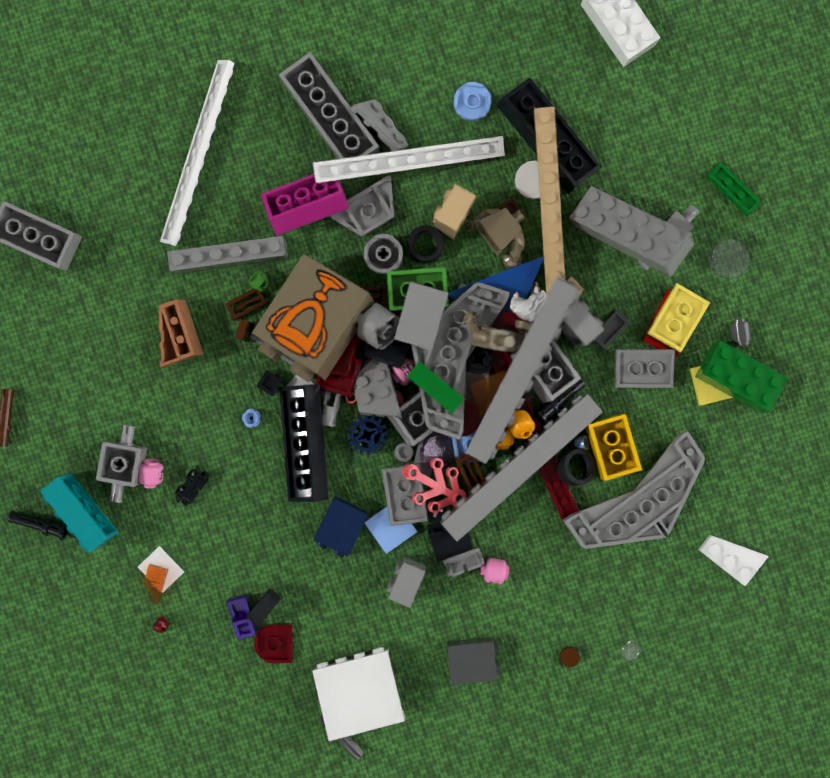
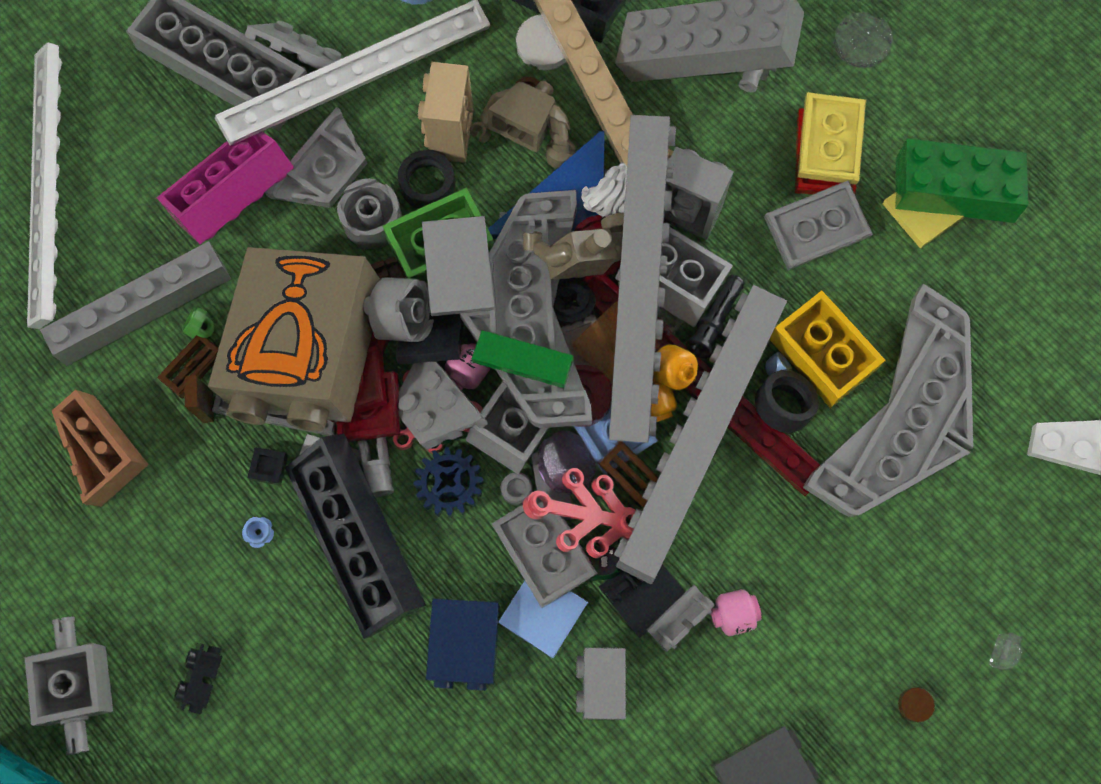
camera: 25 degrees left, 15 degrees down
(150, 473) = (123, 683): bright pink head -> none
(612, 328) = (743, 194): dark grey tile -> none
(740, 332) = (928, 123): dark grey brick -> none

